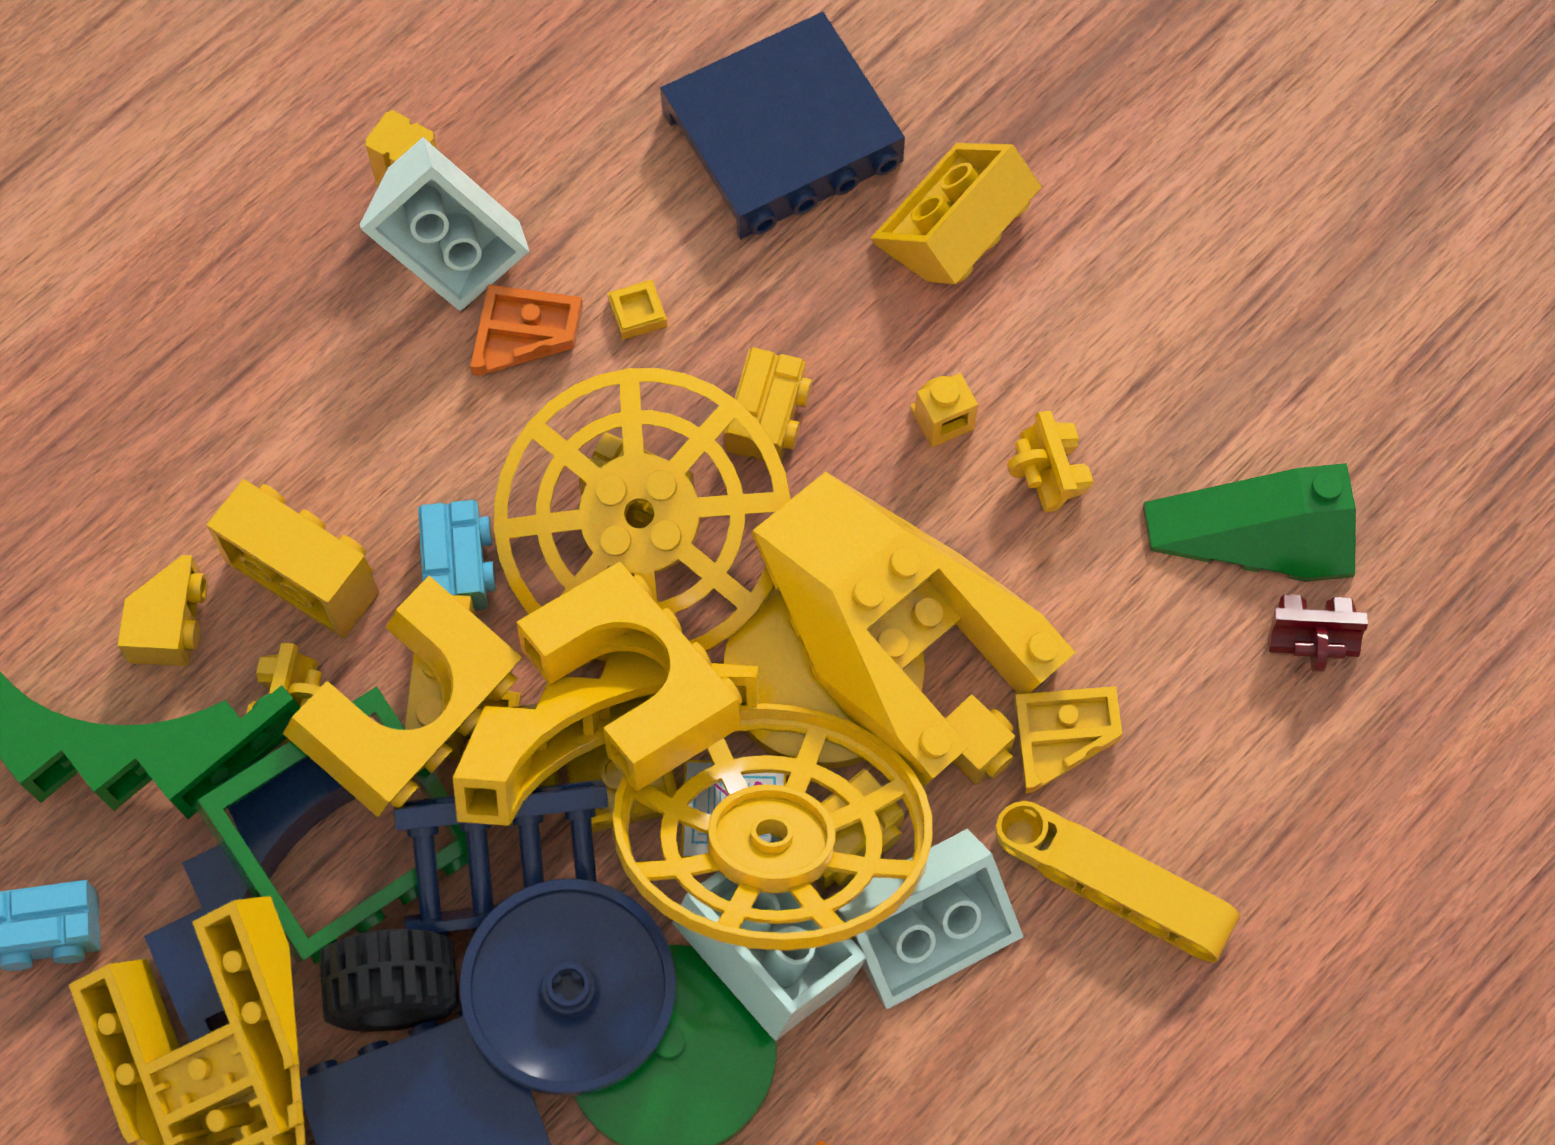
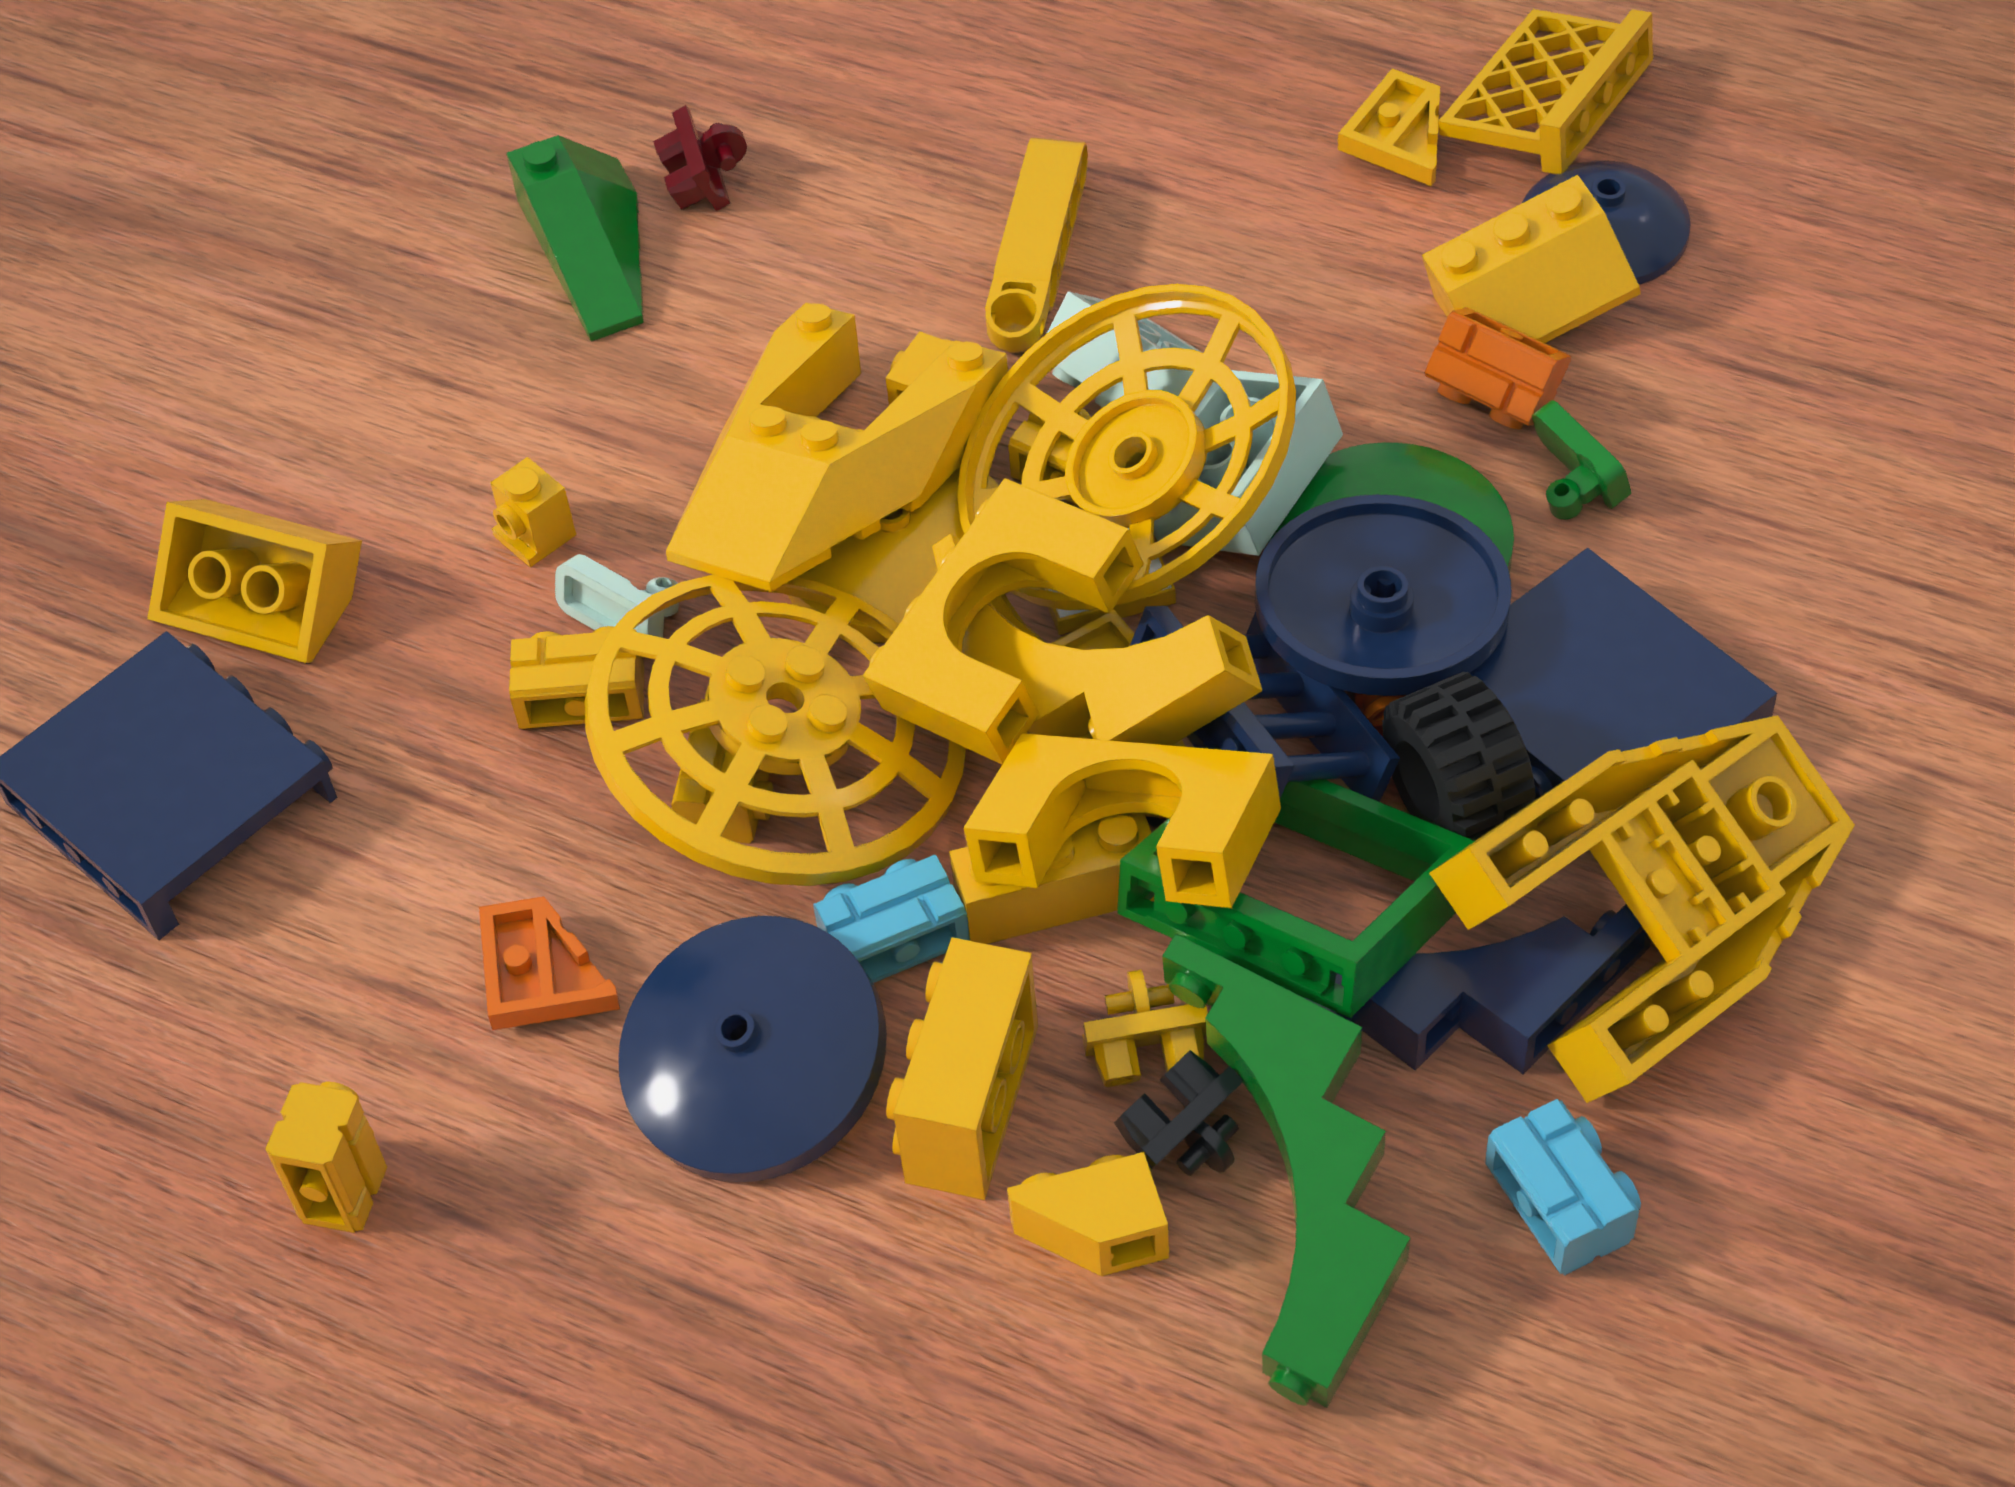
camera: 105 degrees left, 15 degrees down
(198, 684) = (1200, 1092): none -> black hips
(384, 438) = (752, 1049): none -> dark blue dish
(443, 225) = (421, 1046): light aqua slope -> none
(637, 309) = (472, 863): yellow tile -> none
(813, 456) = (603, 597): none -> light aqua piece
(1045, 463) = (569, 409): yellow hips -> none
(1064, 730) = (888, 317): yellow wing -> none

